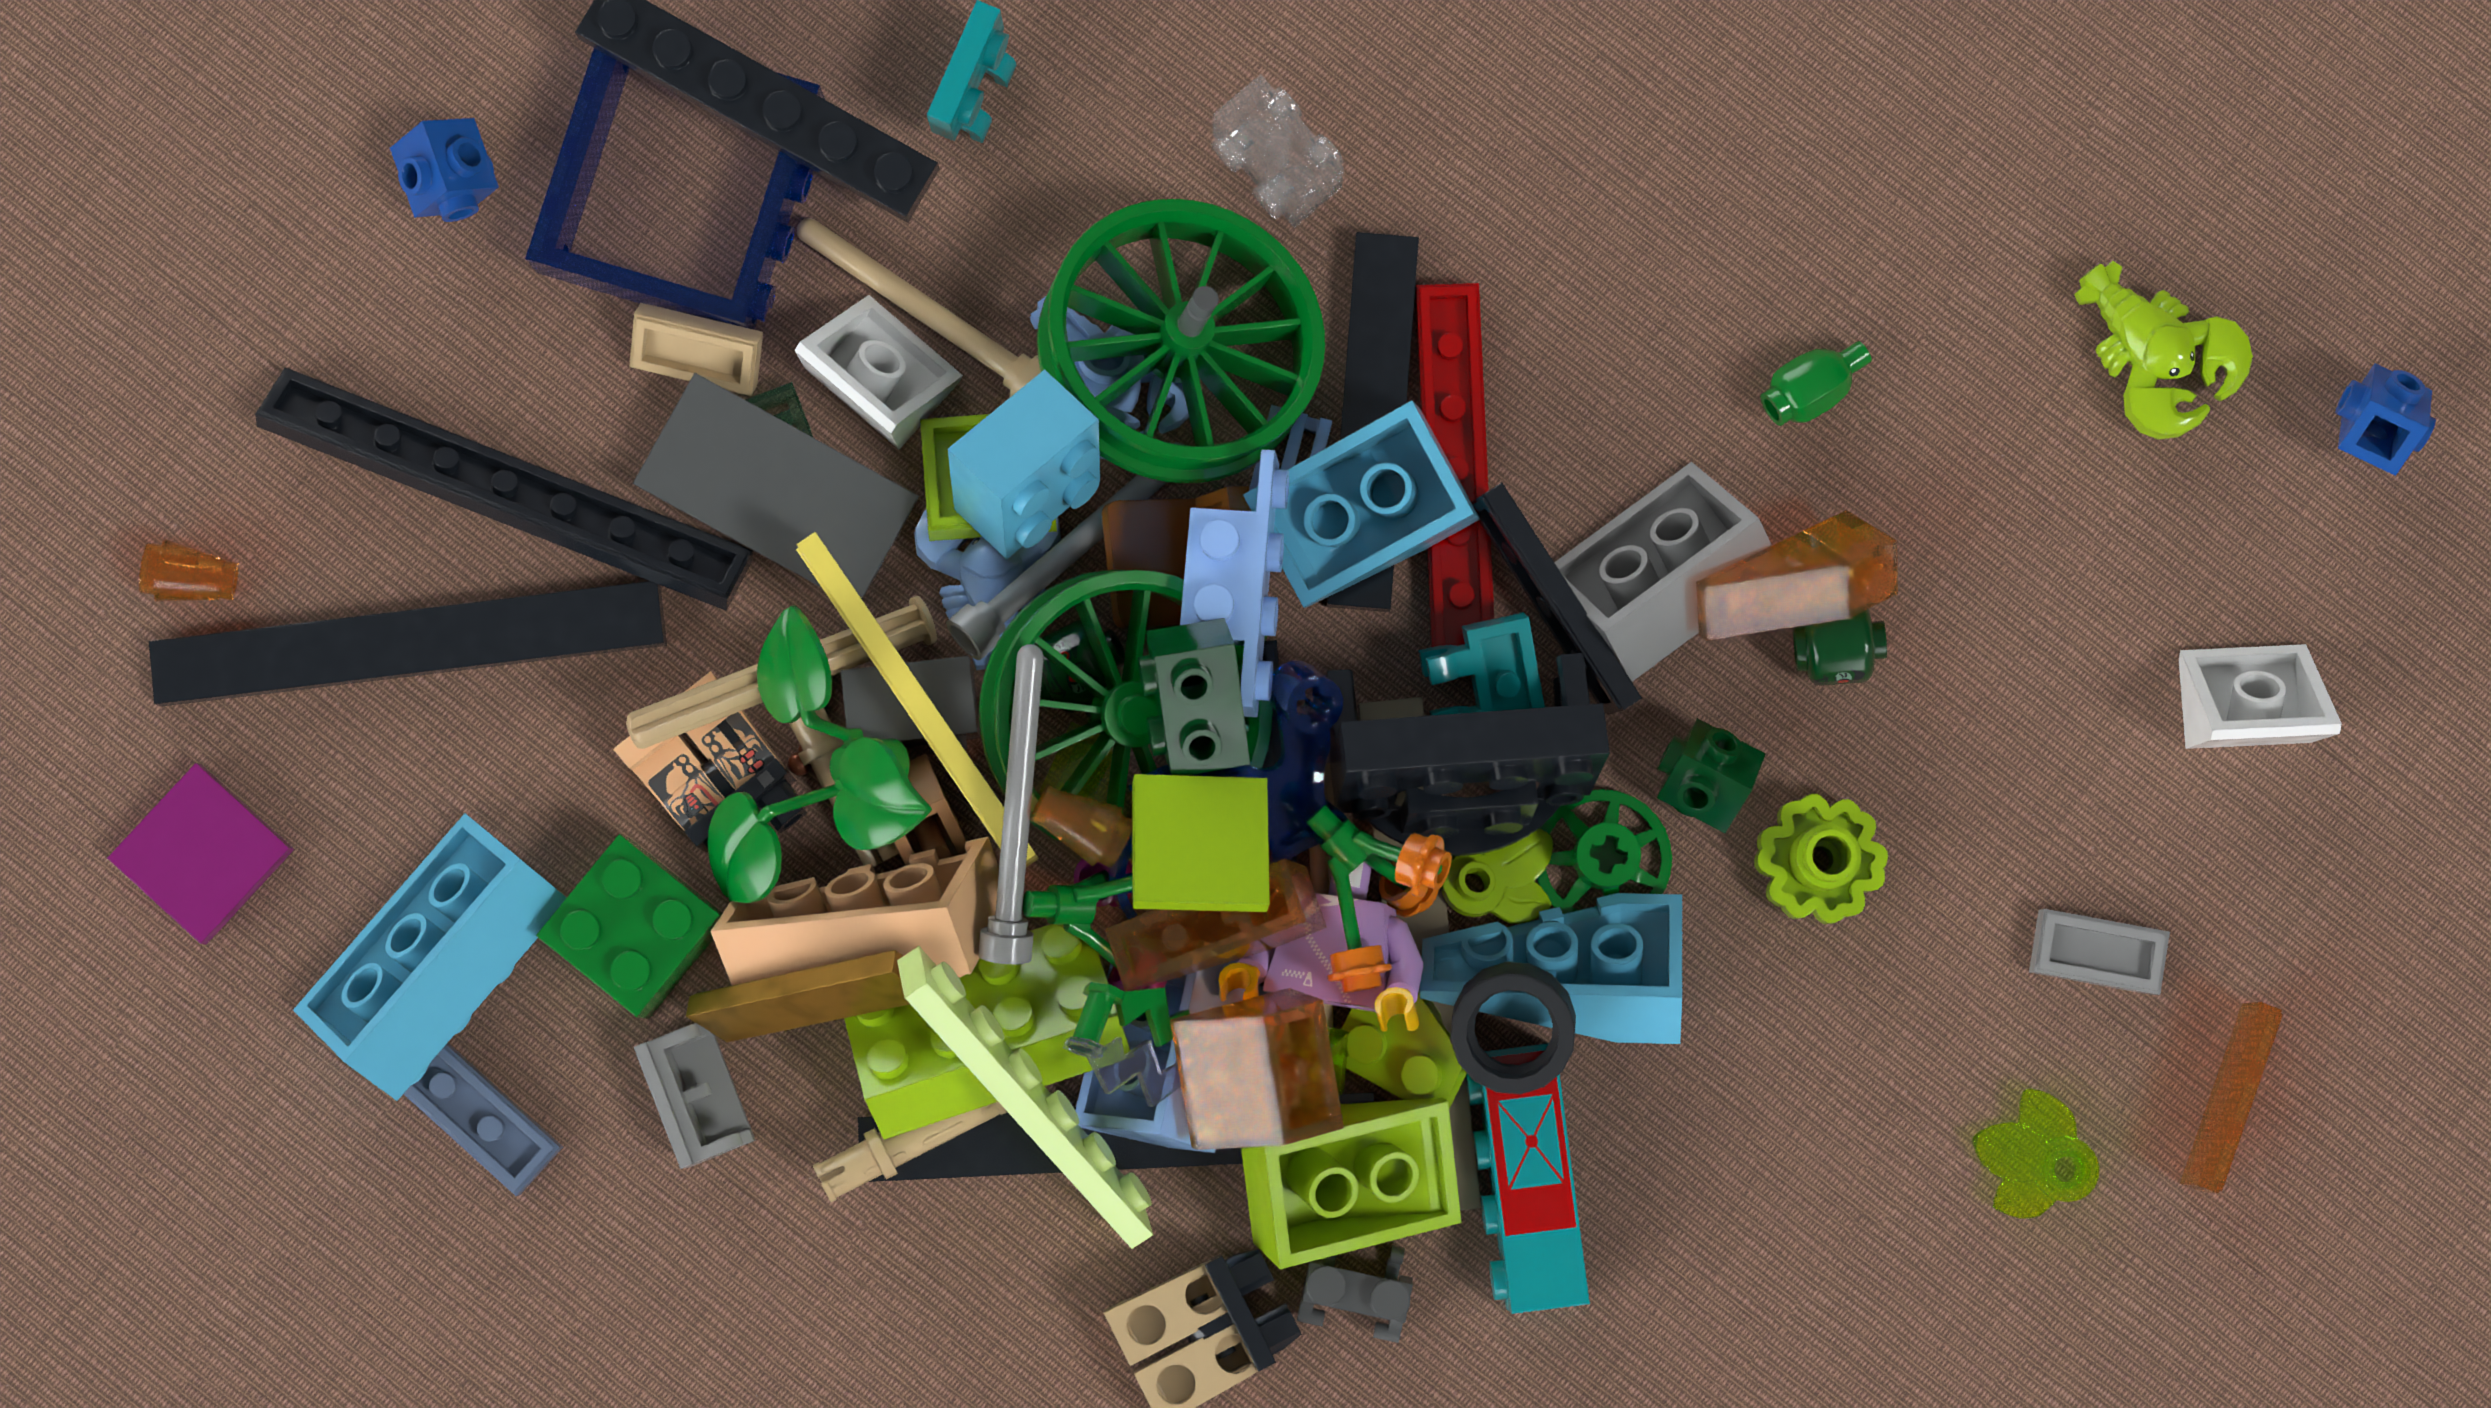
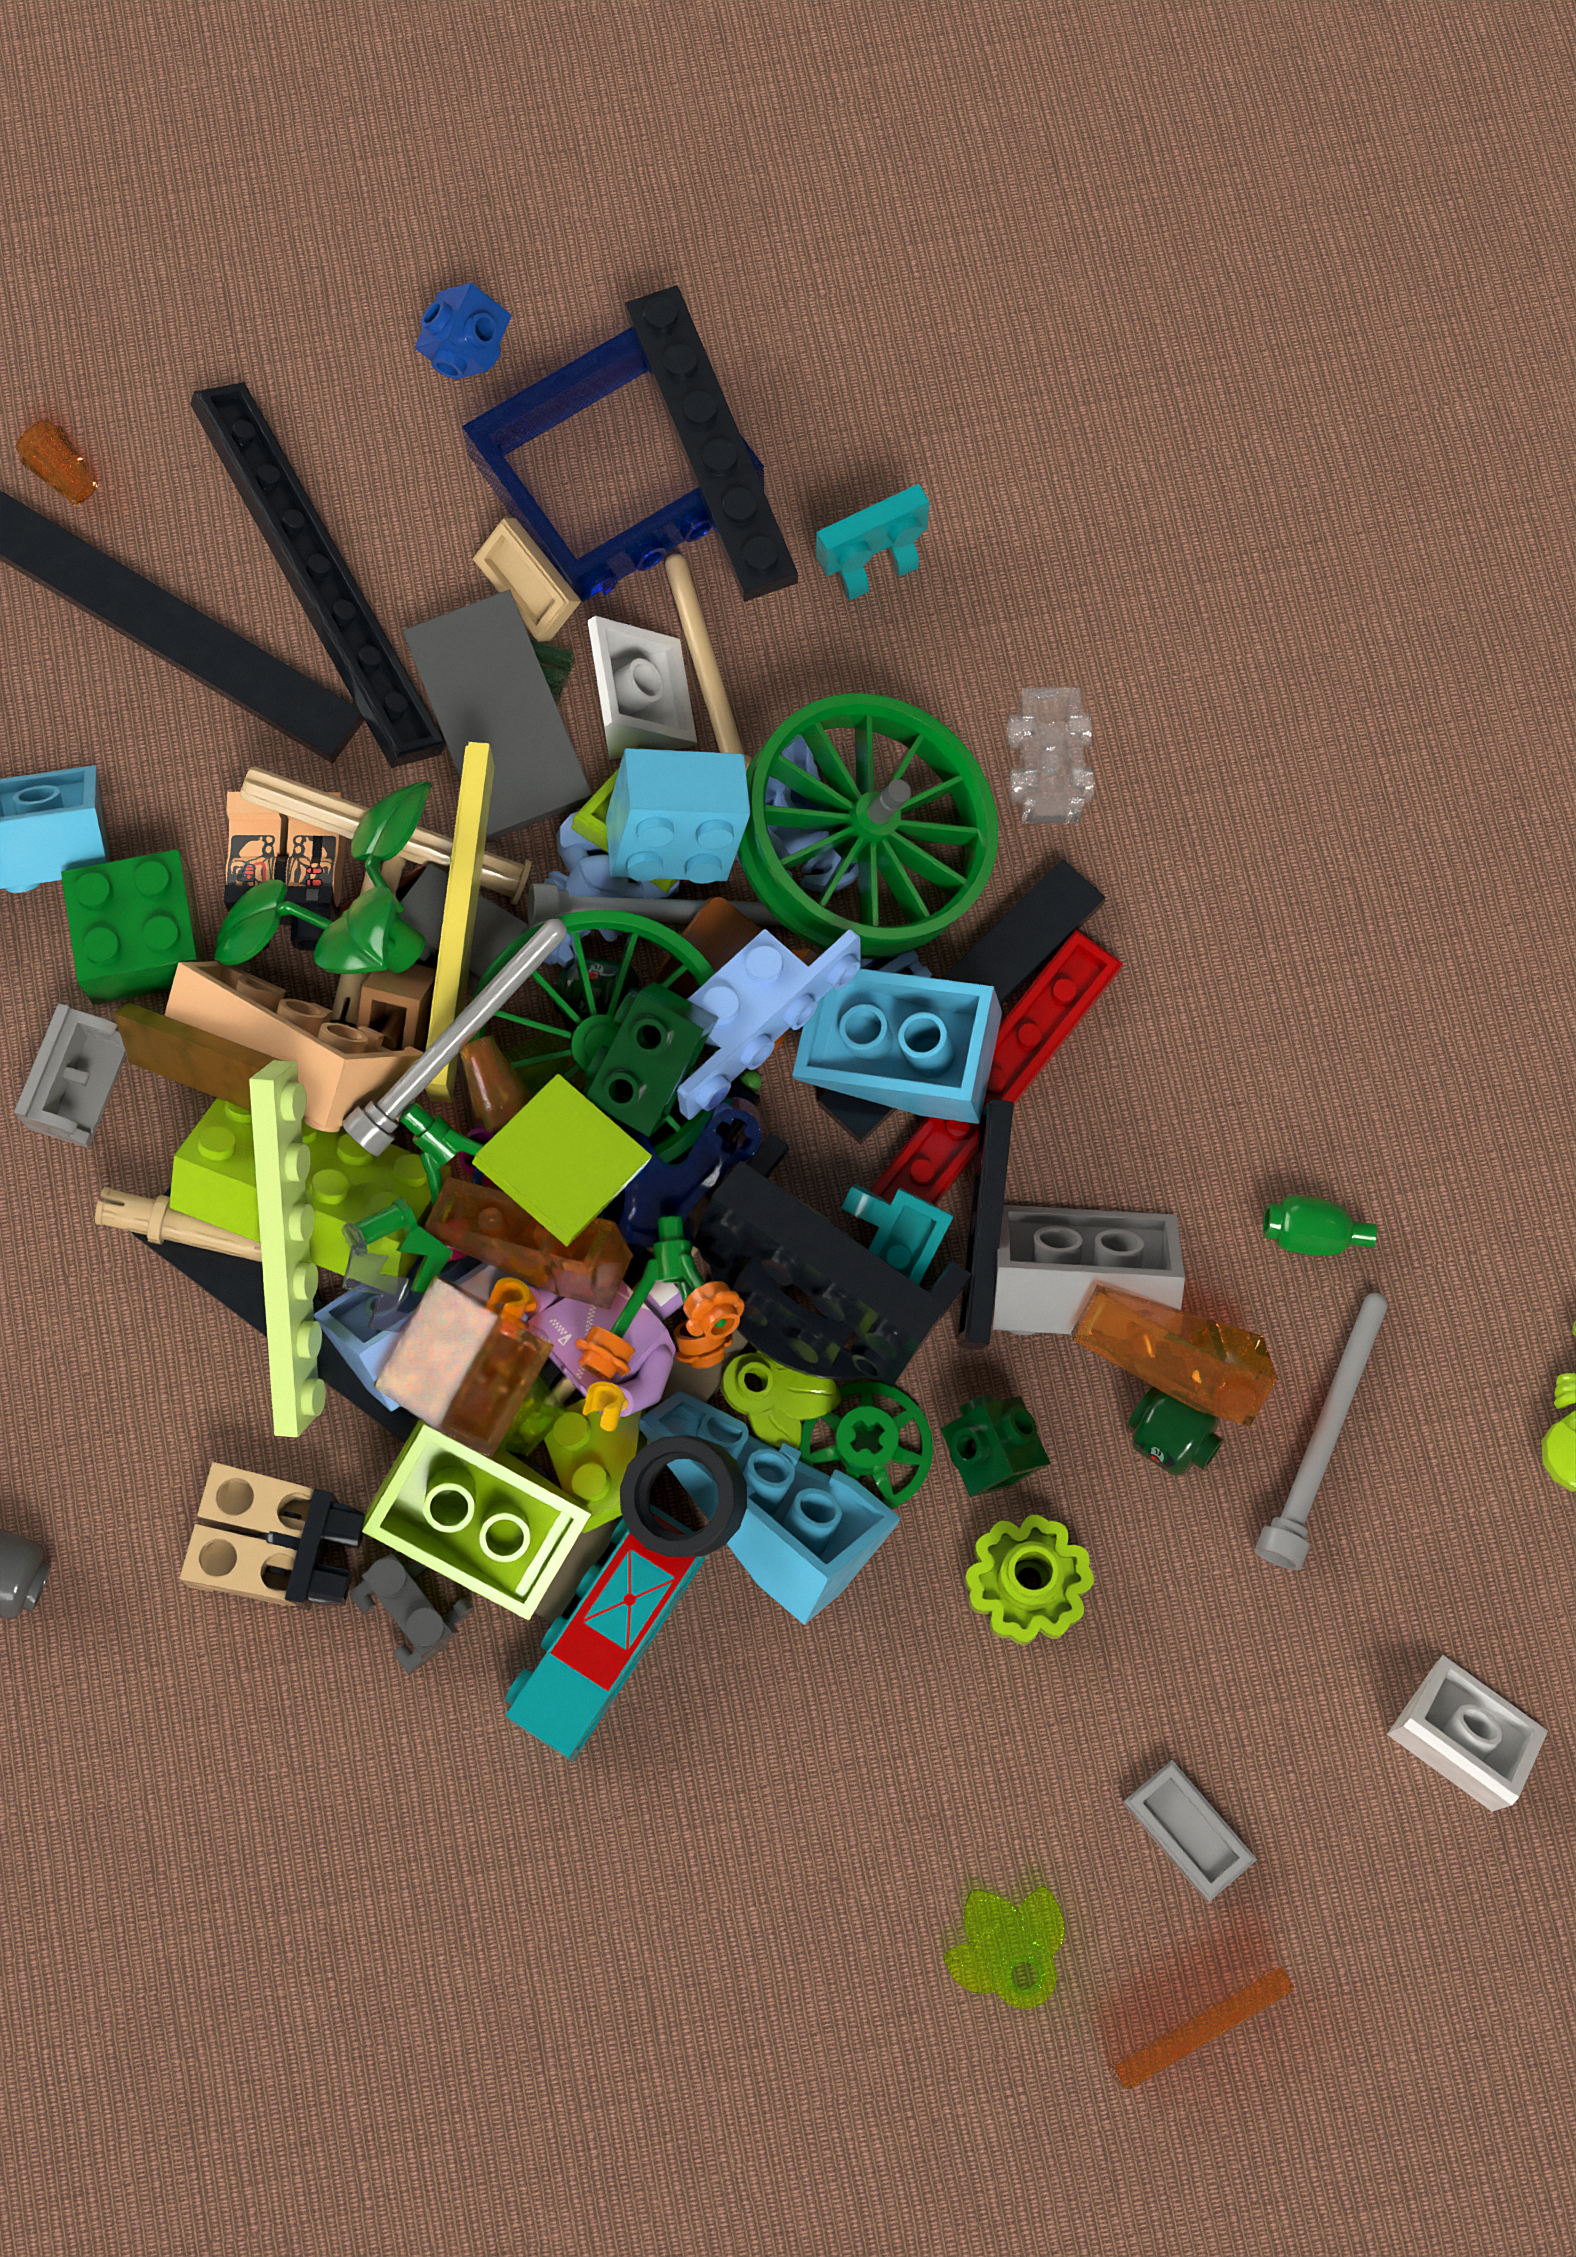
camera: 45 degrees right, 10 degrees down
(1990, 657) = (1285, 1538): none -> light grey piece

